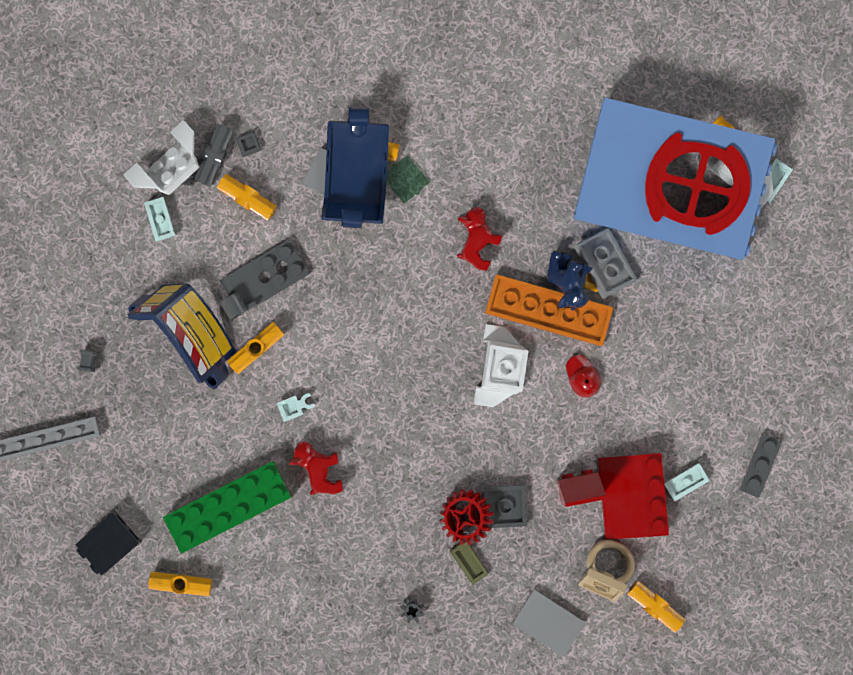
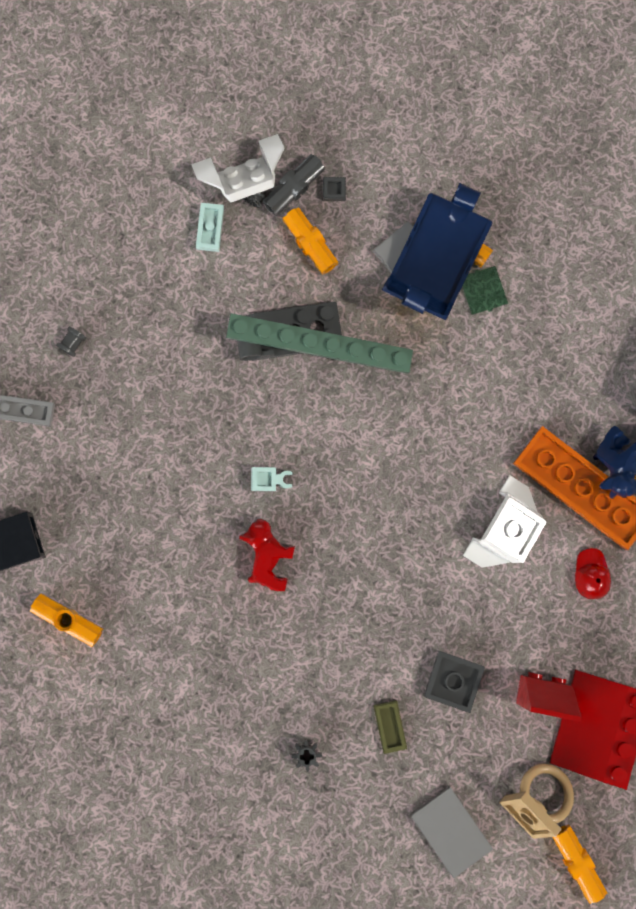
camera: 15 degrees right, 5 degrees down
(190, 328) = (194, 352): panel -> none
(227, 507) = (152, 557): green brick -> none
(245, 357) = (269, 394): light orange piece -> none
(289, 281) = (319, 343): none -> sand green plate
(475, 503) = (400, 682): red gear -> none
(478, 237) = (539, 379): red animal -> none

